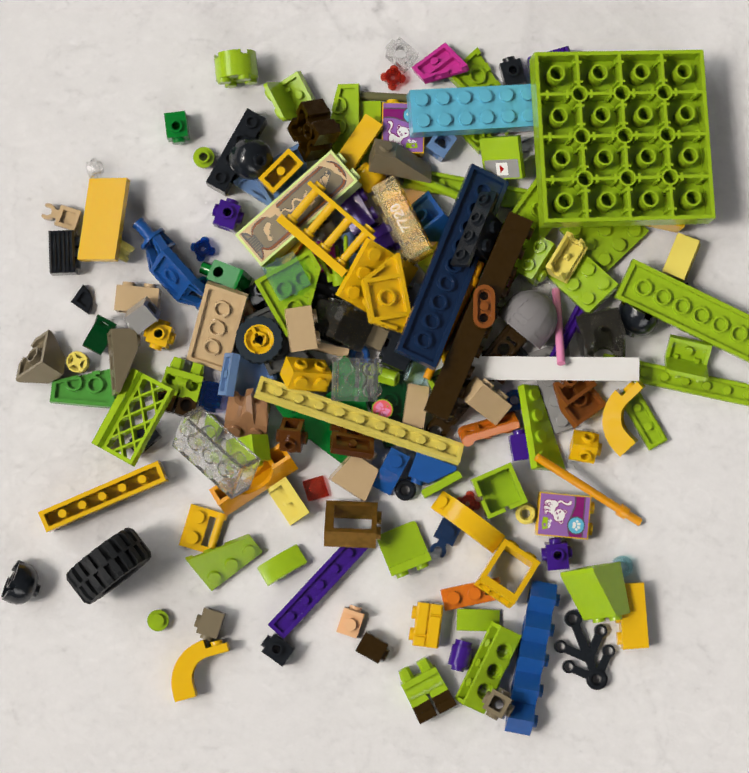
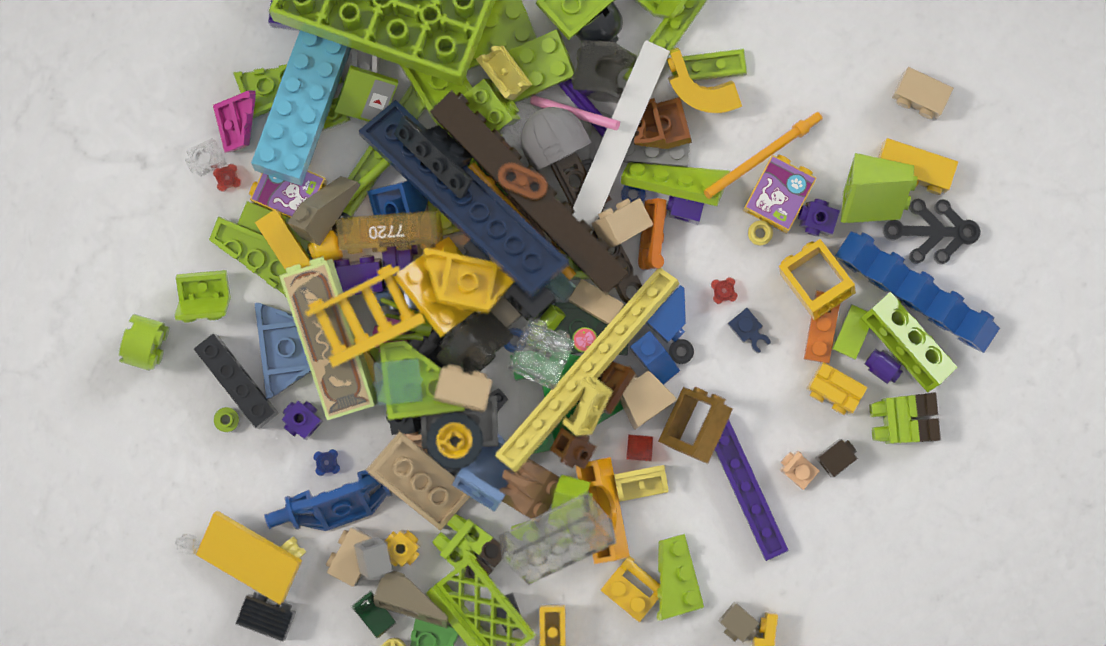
camera: 65 degrees left, 0 degrees up
(65, 217) = (227, 599): tan plate -> none
(83, 300) = (327, 616): black tile -> none
(177, 127) = (180, 435): green brick -> none
(209, 397) = (491, 521): clear blue brick -> none
(226, 275) = (373, 443): green torso -> none
(250, 158) = (251, 367): black cylinder -> none
(280, 171) = (279, 341): yellow brick -> none
(281, 565) = (707, 518): lime slope -> none
(285, 649) = (803, 553): black brick -> none
(306, 374) = (513, 405): yellow brick -> none
(313, 129) = (249, 286): dark brown brick -> none
(325, 230) = (365, 318): dark tan piece -> none
(328, 434) = (589, 407): none -> light yellow hinge
(332, 349) = (498, 364): tan tile -> none
(378, 96) = (243, 196): olive bar -> none
(404, 549) = (746, 379): lime bracket -> none
(437, 151) = (329, 162): medium blue brick -> none
(441, 484) = (691, 310): lime tile -> none
(468, 521) = (743, 298): yellow arch -> none
(490, 700) = (961, 354): dark tan brick -> none
(498, 490) = (723, 251): lime piece -> none
(507, 77) = (280, 54): black brick -> none
(584, 446) = (715, 139): yellow brick -> none
(629, 565) = (857, 146): clear light blue plate -> none
(692, 596) = (922, 93): none -> tan brick

